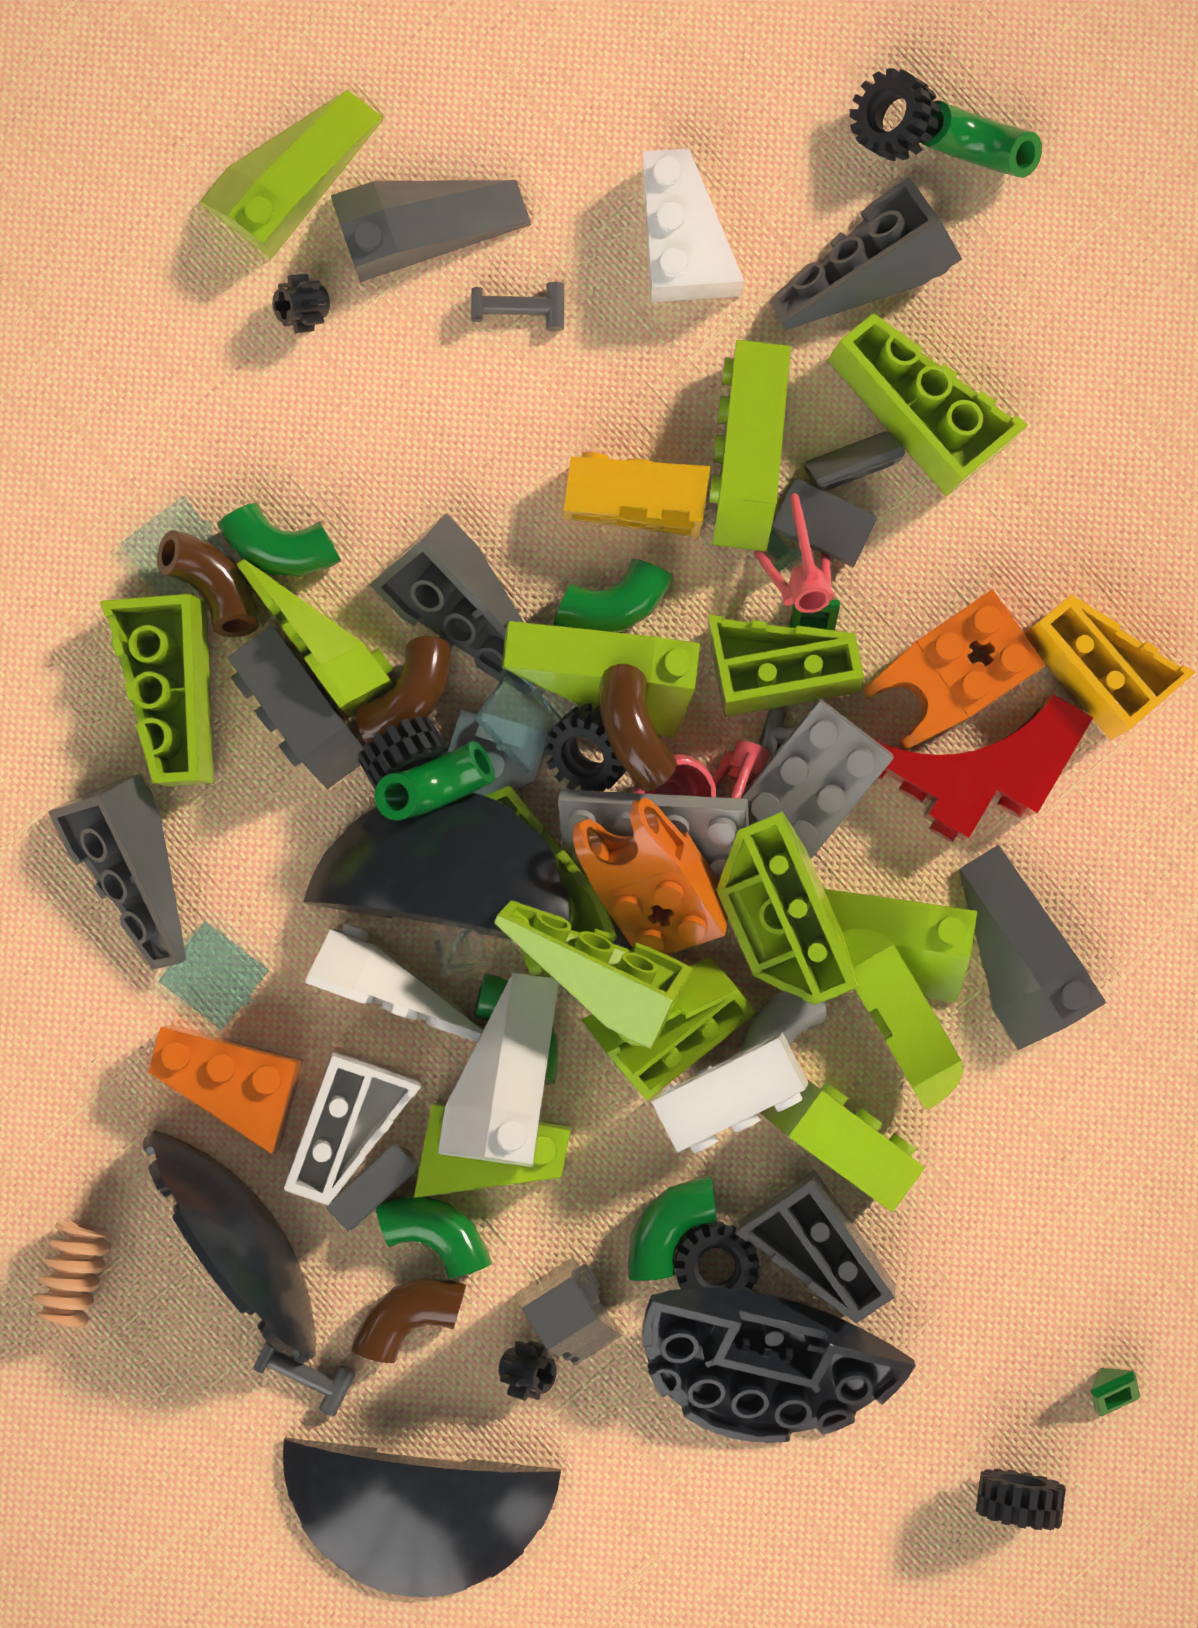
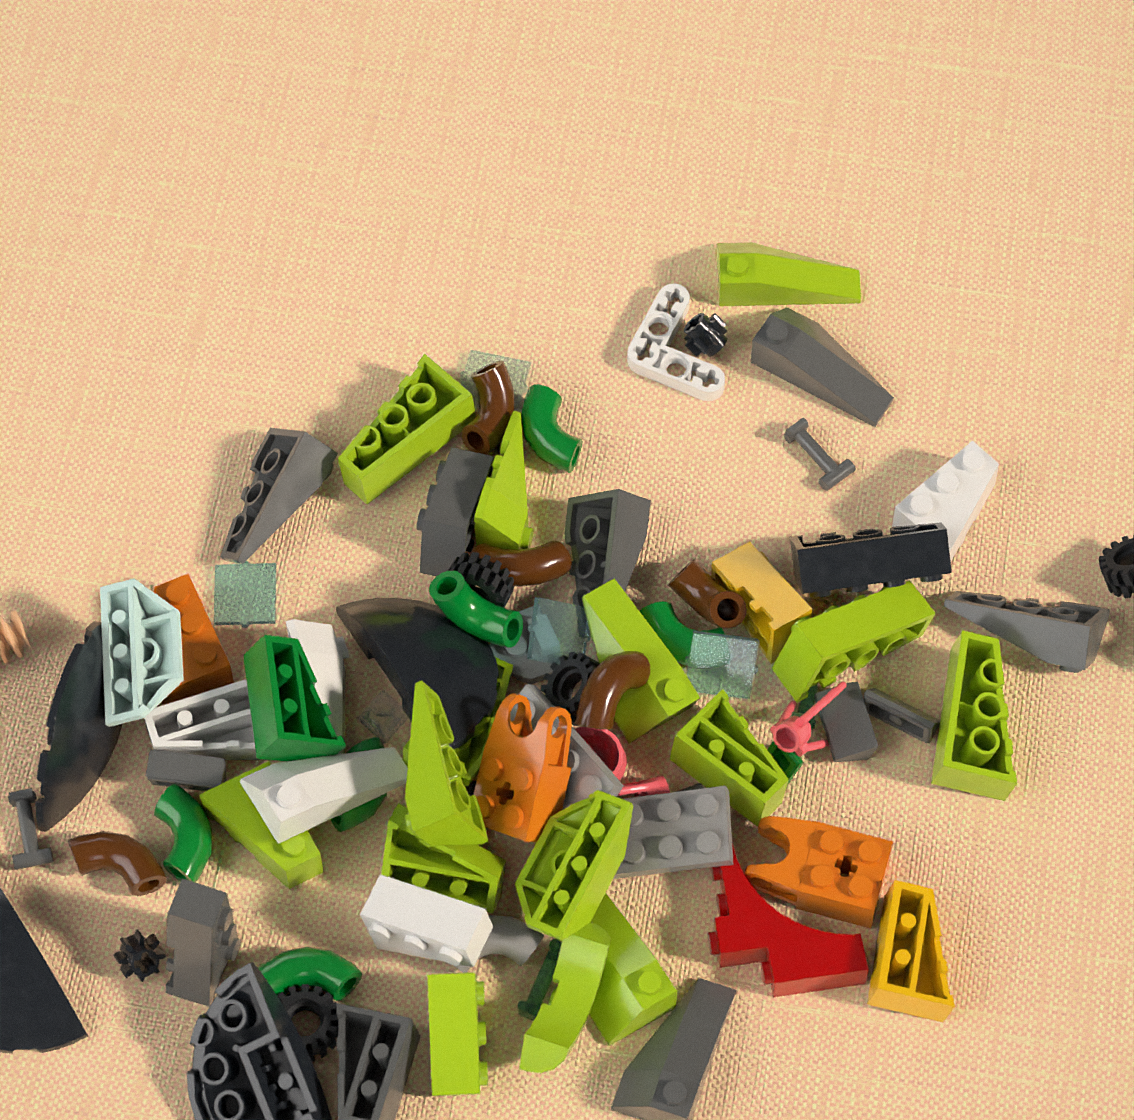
camera: 50 degrees right, 25 degrees down
(220, 1151) = (138, 650): none -> light aqua wedge
(286, 361) = (662, 355): none -> white beam
(394, 1050) = (284, 704): none -> green wedge
(594, 542) = (708, 596): none -> reddish brown cylinder
(674, 590) = (722, 663): none -> clear light blue piece
(689, 361) = (870, 558): none -> black wedge
(868, 1046) = (531, 1007): none -> clear green piece

